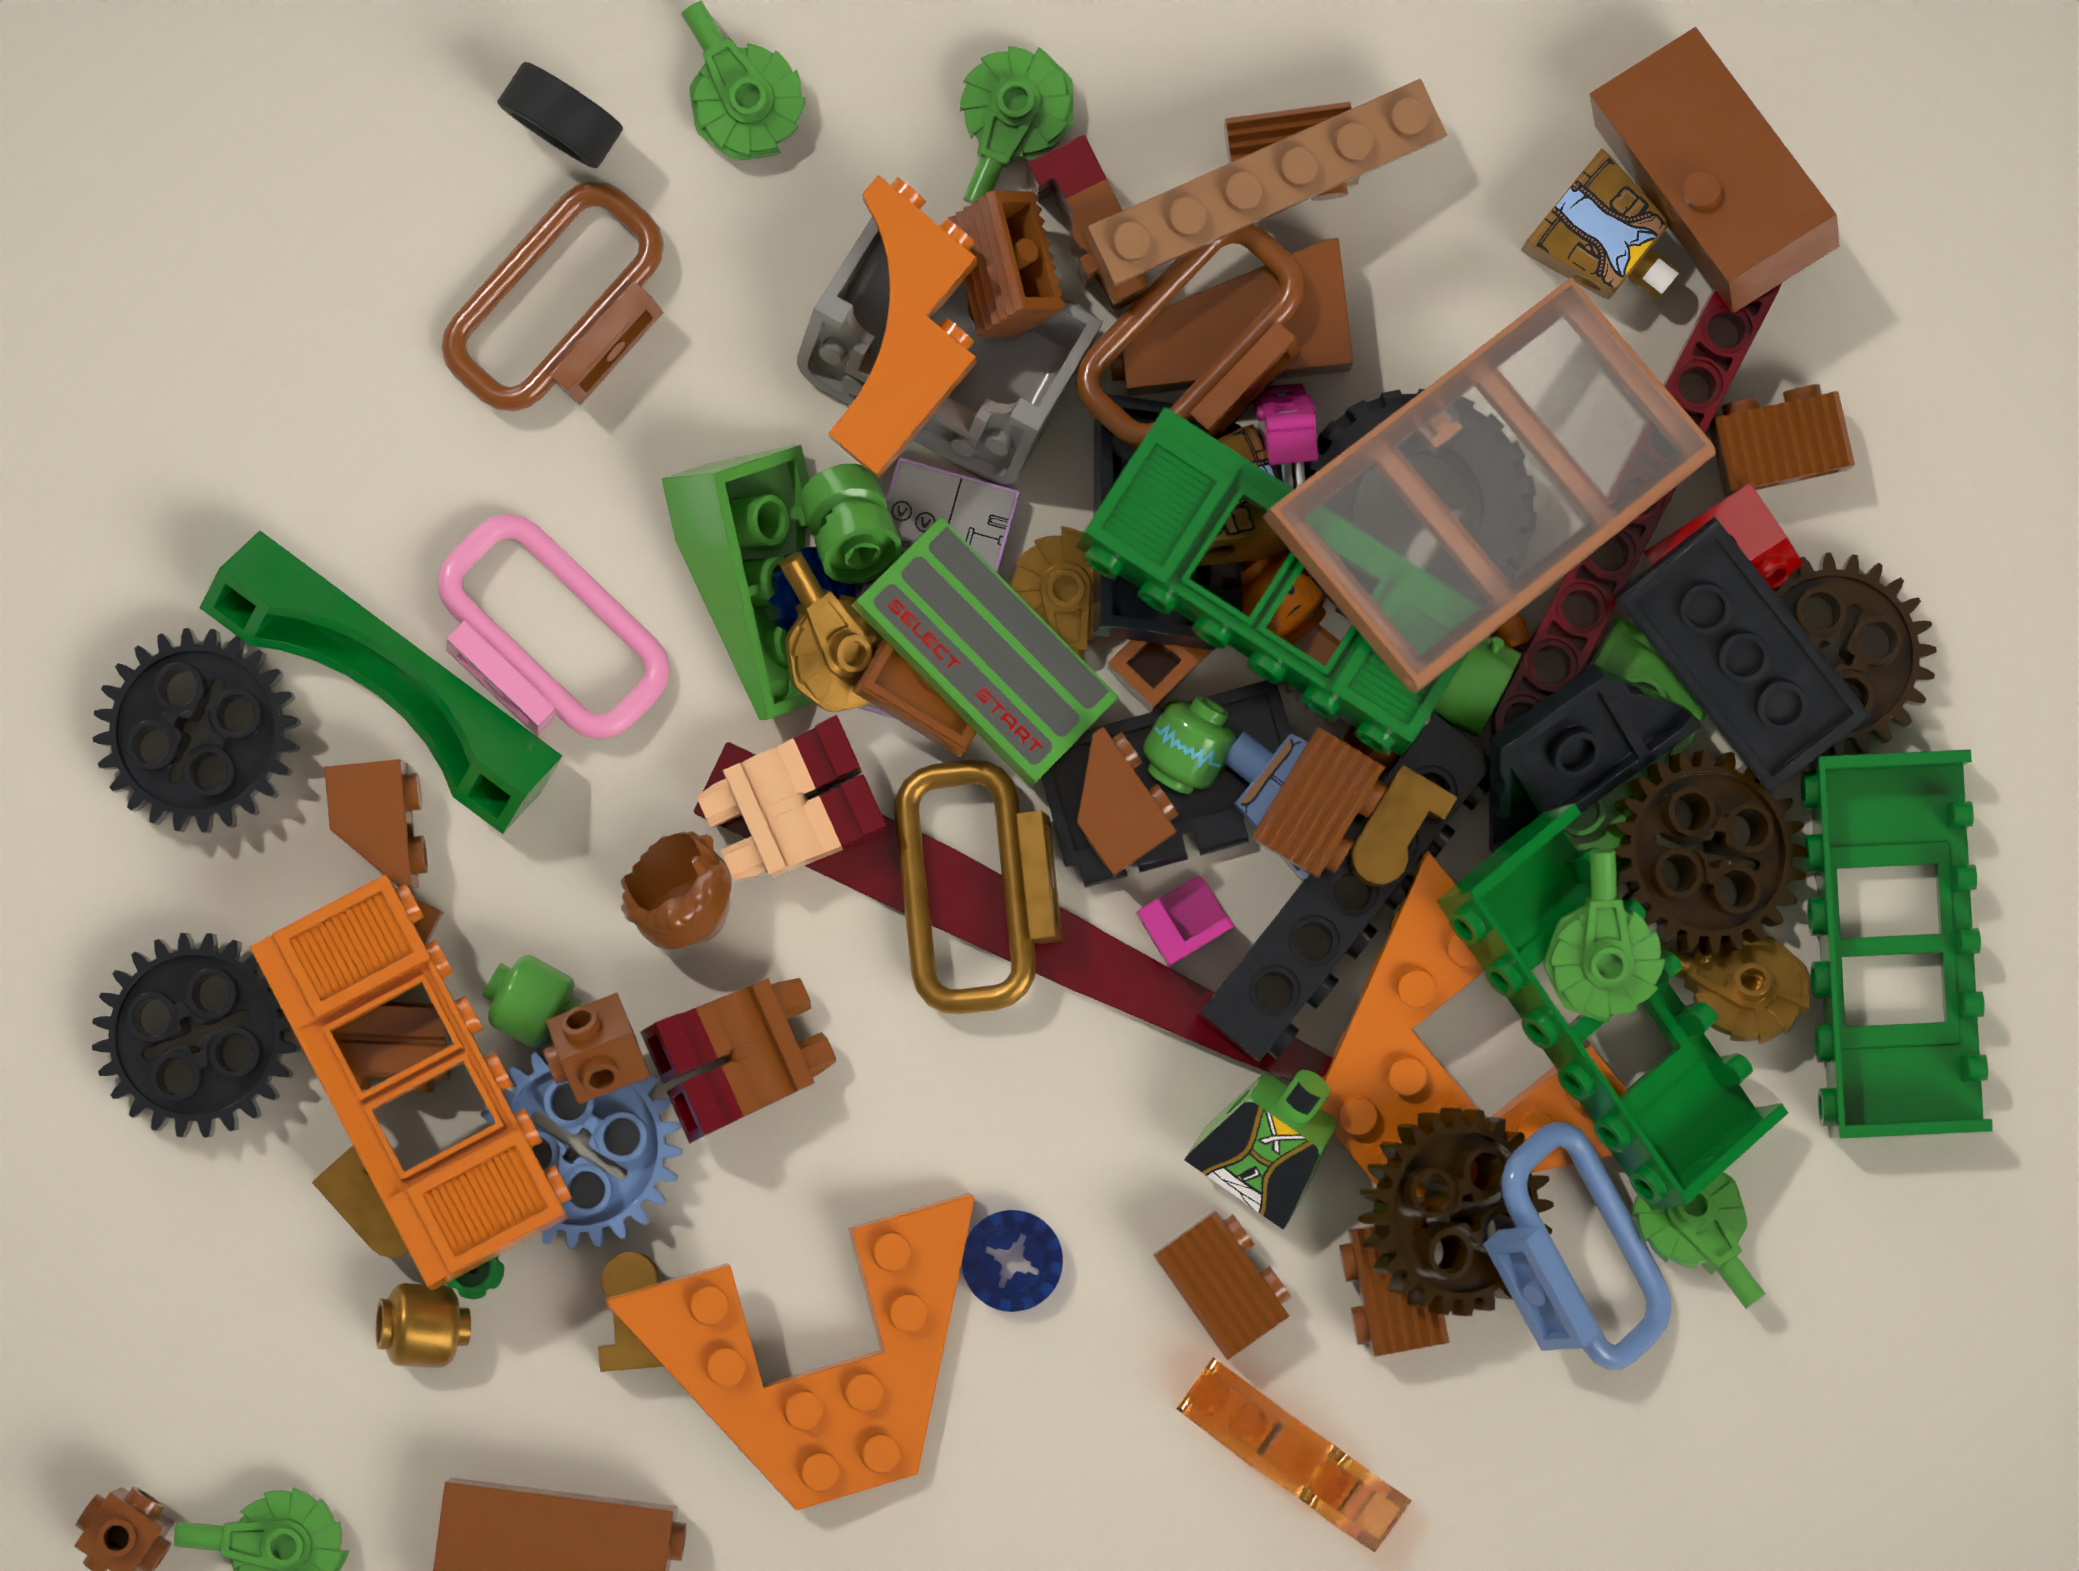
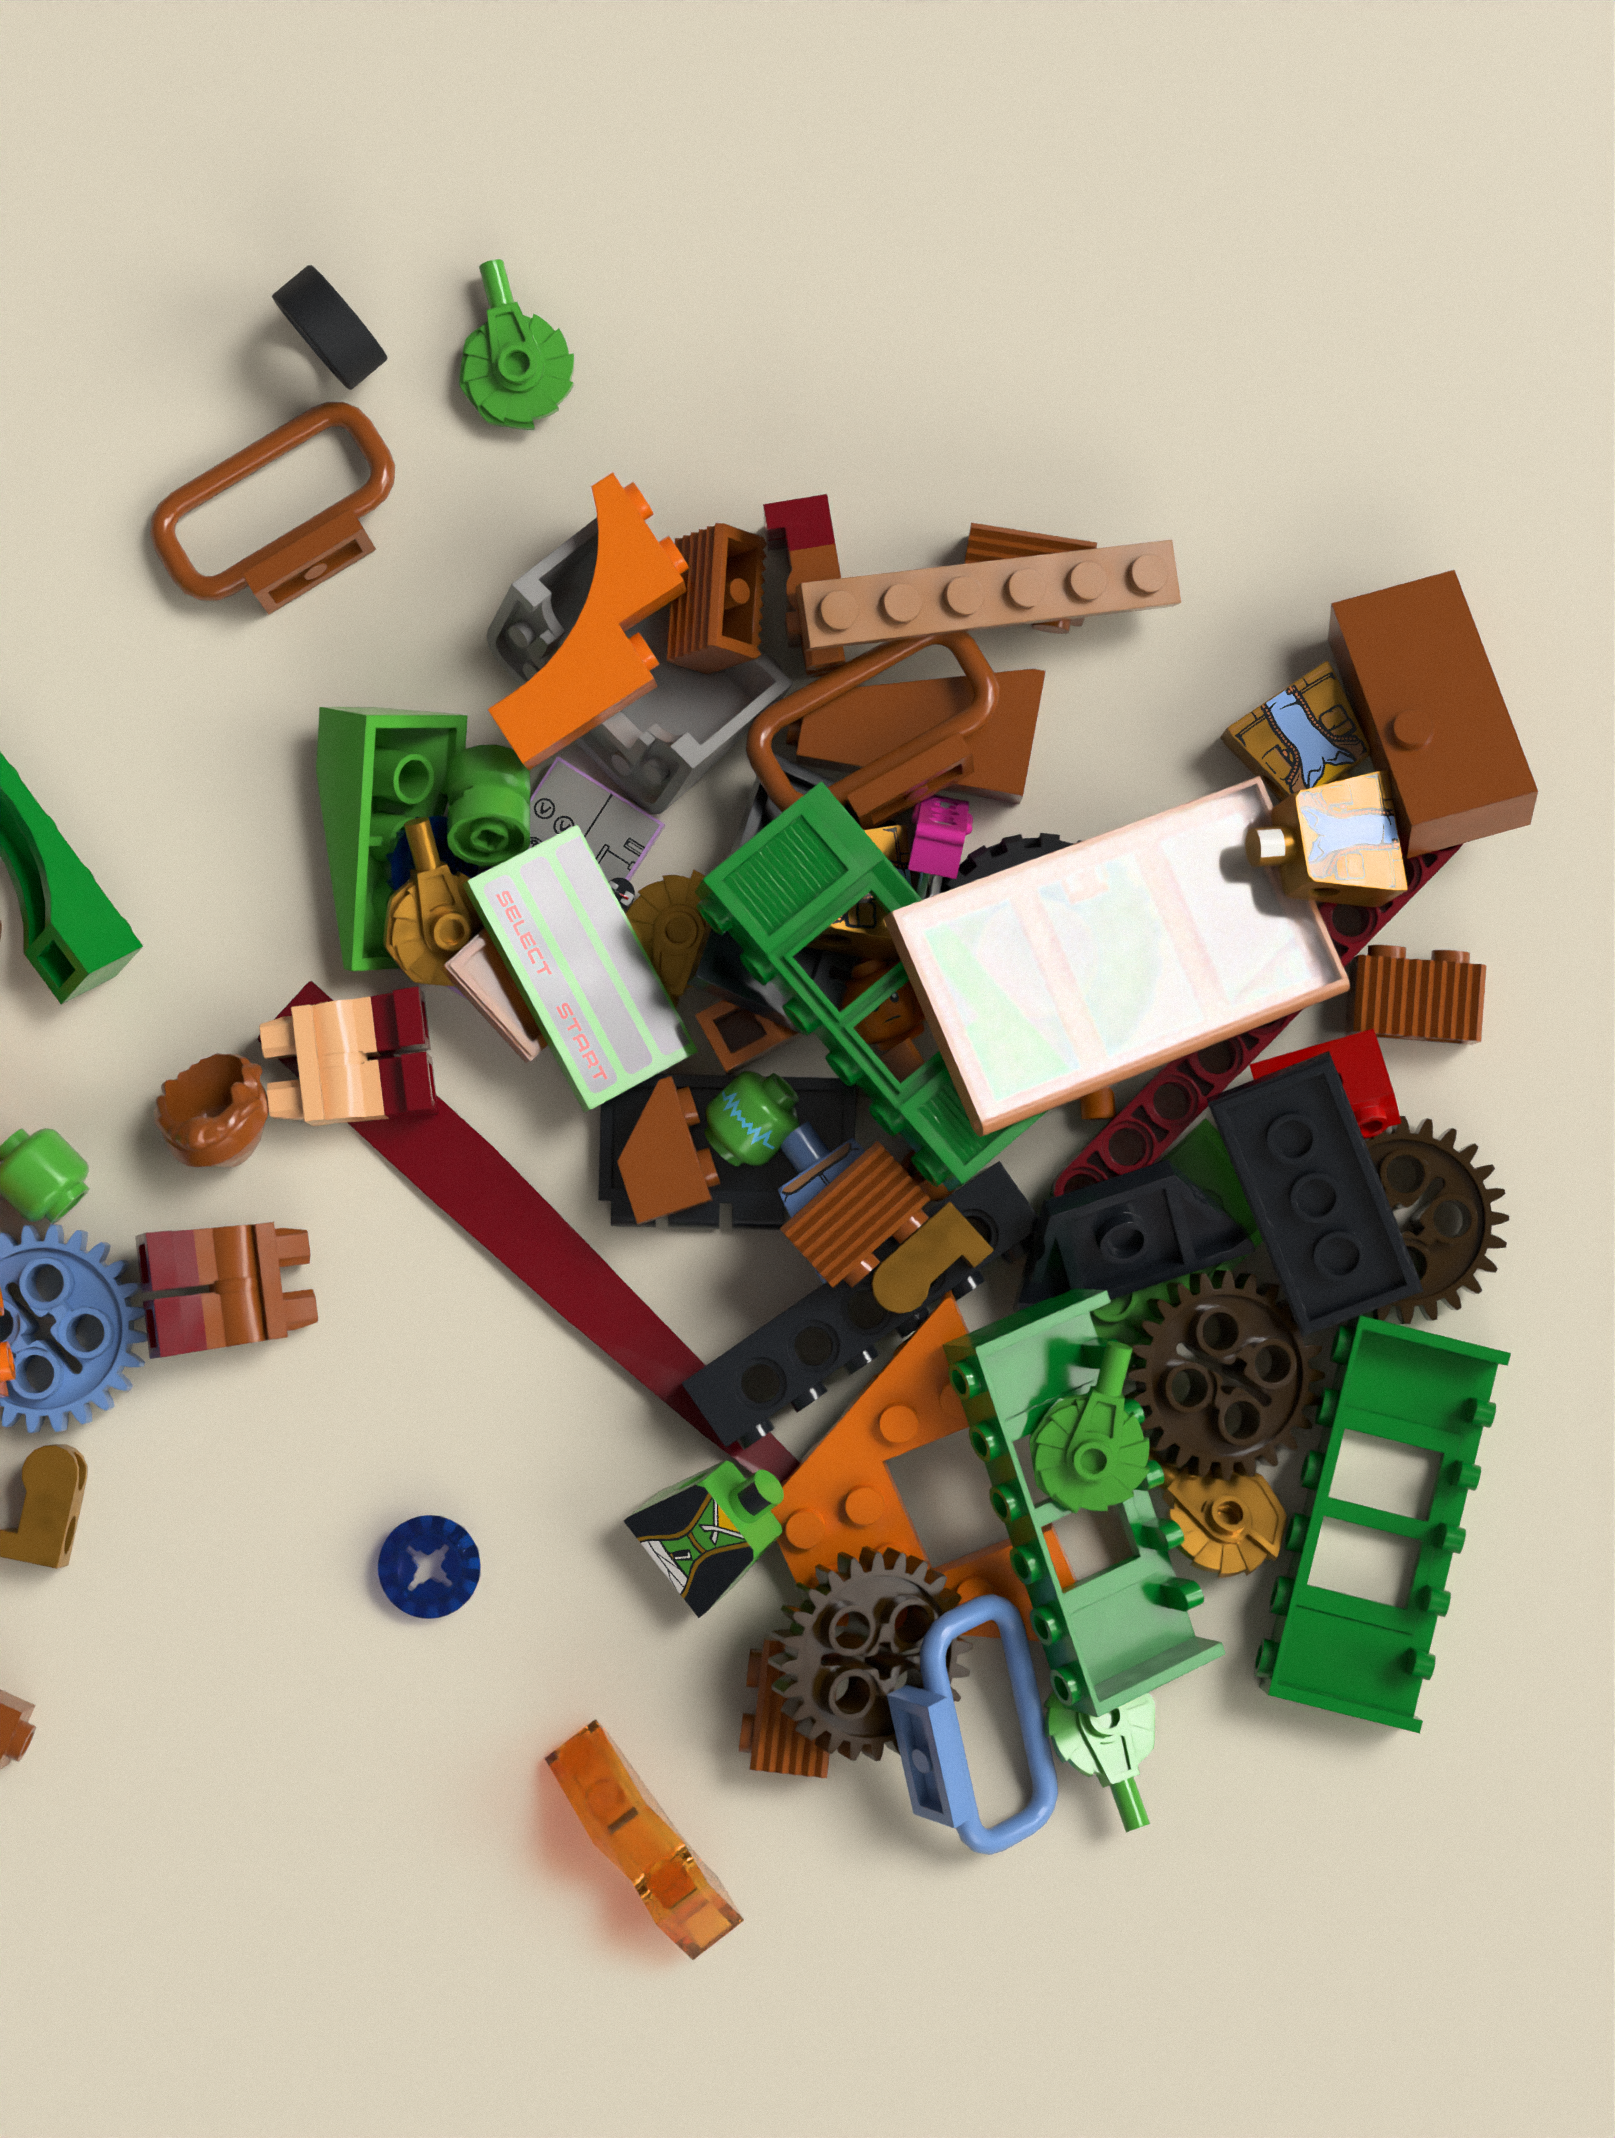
camera: 15 degrees right, 0 degrees up
(509, 670) = (122, 850): bright pink bar -> none
(595, 1049) = (81, 1240): dark orange brick -> none
(841, 1422) = (211, 1674): orange wing -> none
(1001, 565) = (623, 891): none -> black piece
(1017, 111) = (771, 455): bright green piece -> none
(1026, 878) = (555, 1204): pearl gold bar -> none
(1184, 920) = (696, 1286): dark pink panel -> none
(1223, 1283) = (626, 1652): dark orange brick -> none
(1478, 685) = (1049, 1145): bright green piece -> none
(1661, 319) = (1334, 843): none -> torso

